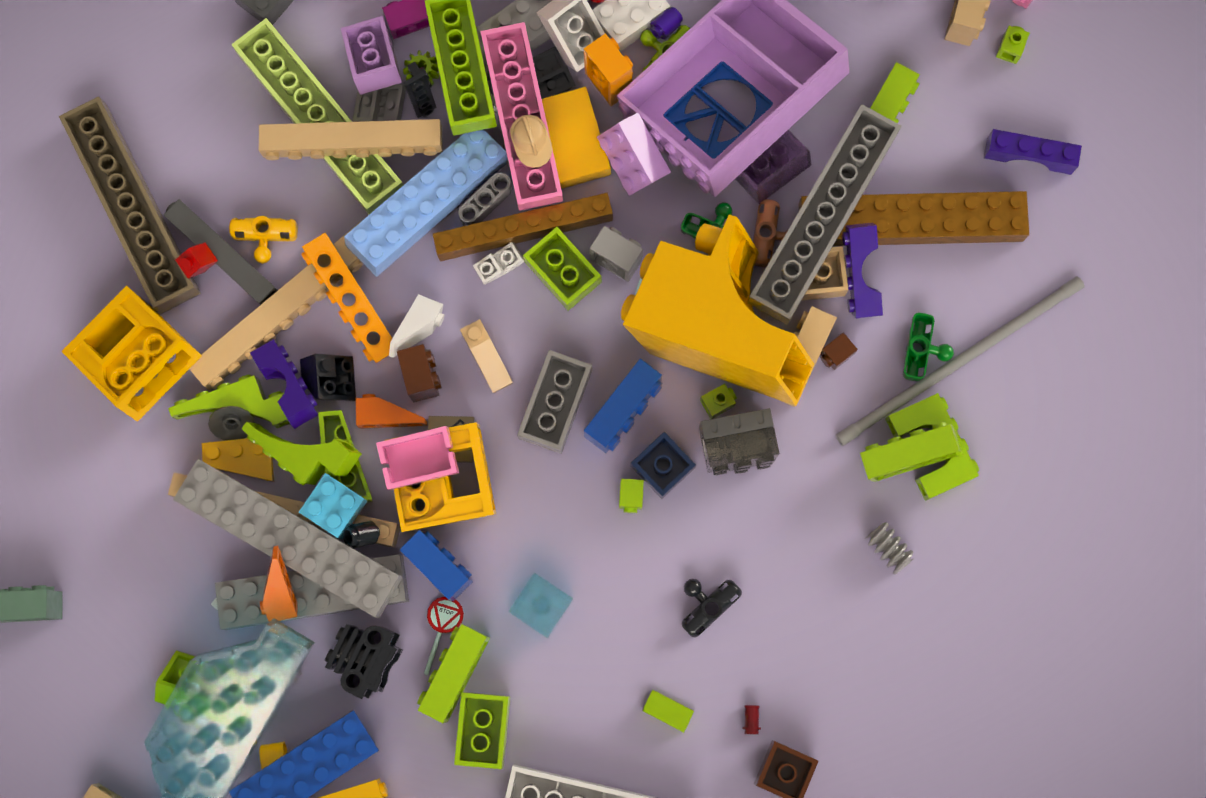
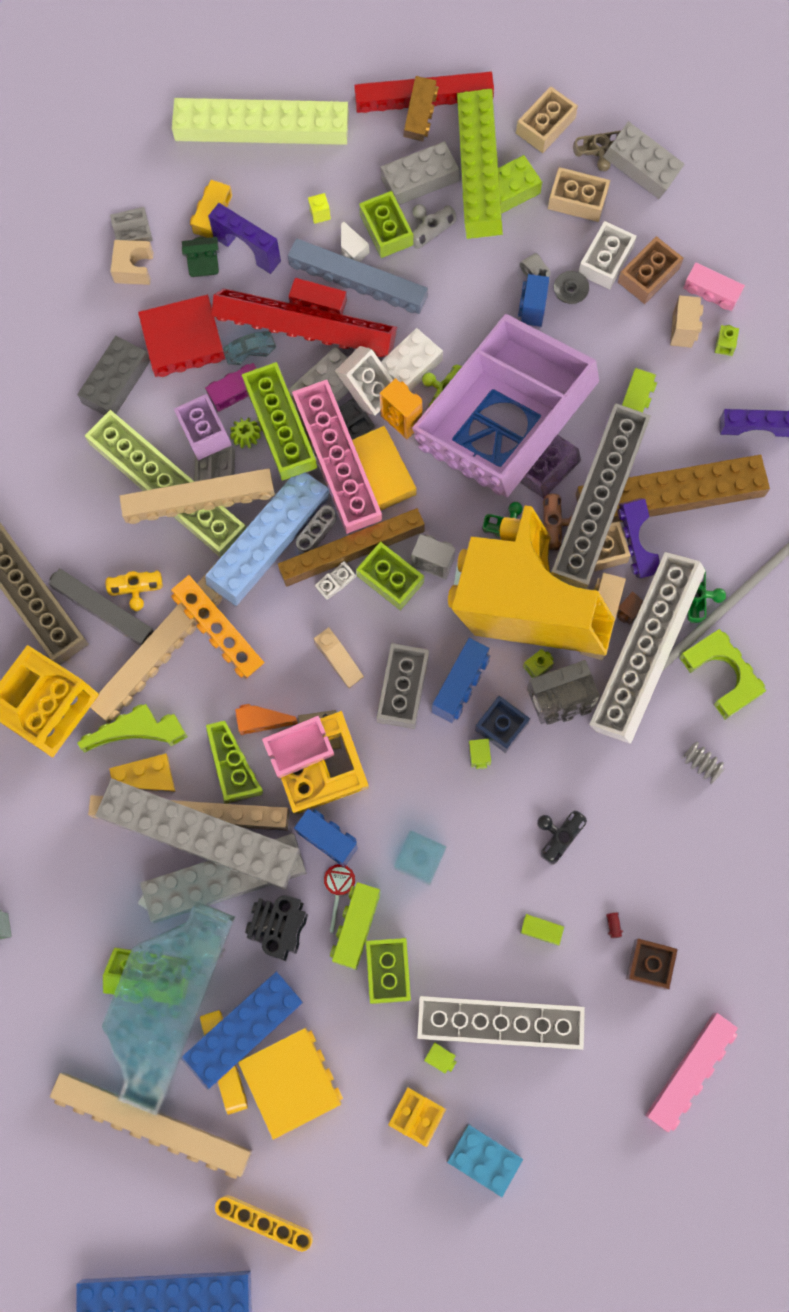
camera: 10 degrees left, 5 degrees down
(196, 260) = (82, 615): red brick -> none
(228, 422) = (132, 747): dark grey dish -> none
(278, 595) = (196, 880): orange slope -> none
(295, 402) = (185, 720): dark purple arch -> none
(305, 461) = (201, 766): lime arch -> none
(329, 376) = (209, 695): black slope -> none
(332, 506) = (232, 800): medium azure brick -> none
(361, 534) = (259, 820): black brick -> none
(418, 324) = (277, 640): white slope -> none
(418, 373) = (283, 677): reddish brown brick -> none
(419, 91) = (248, 448): black bracket -> none
(531, 141) = (348, 474): tan piece -> none
(633, 154) = (433, 473): lavender brick -> none
(666, 23) = (441, 365): dark purple brick -> none
(849, 401) = (647, 647): none -> white brick
(911, 453) = (708, 679): lime brick -> none

